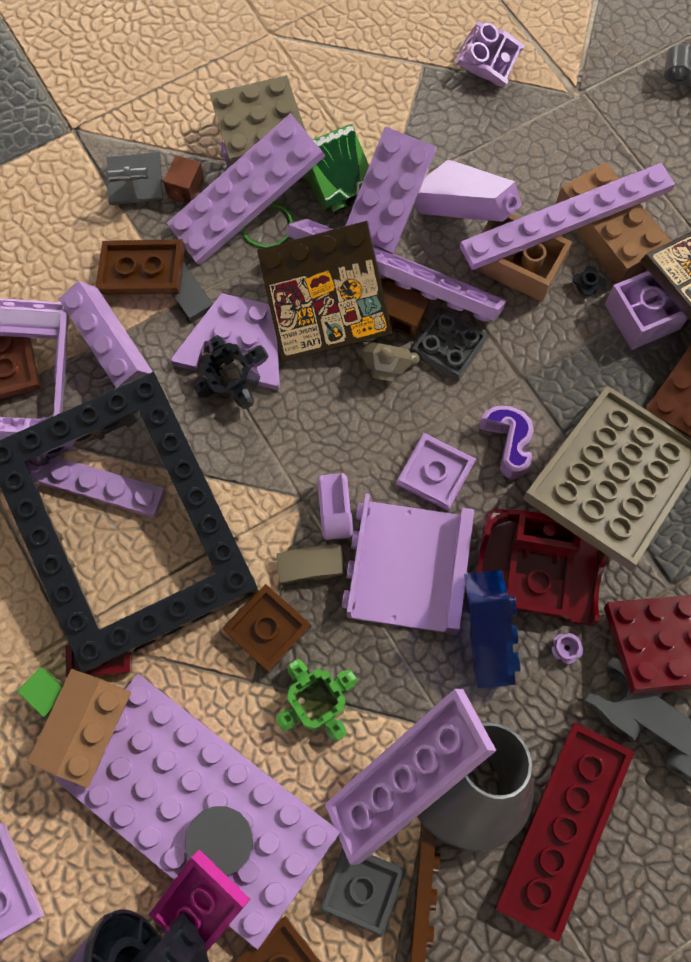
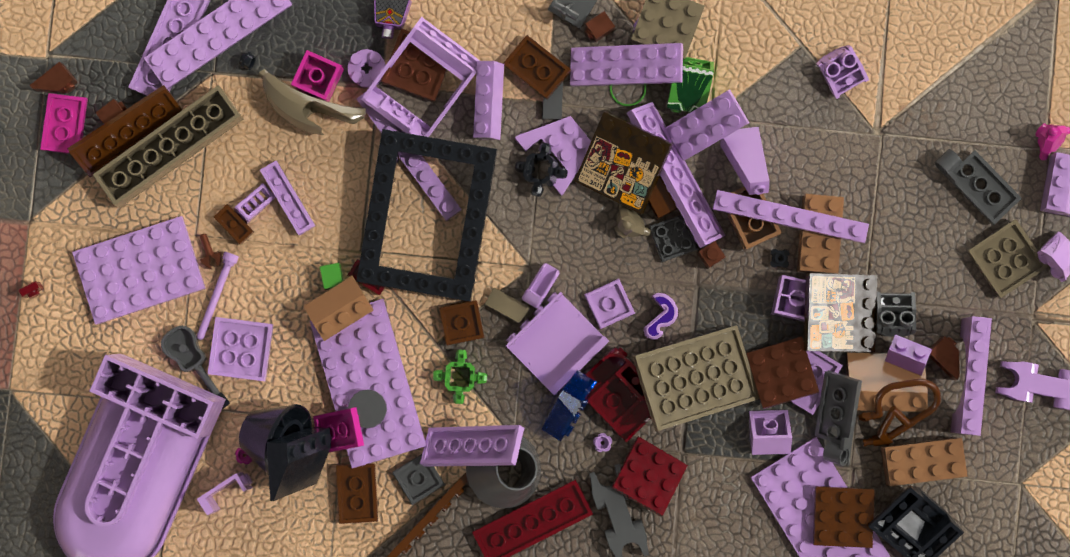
camera: 40 degrees right, 15 degrees up
(510, 328) = (711, 255): none -> copper brick

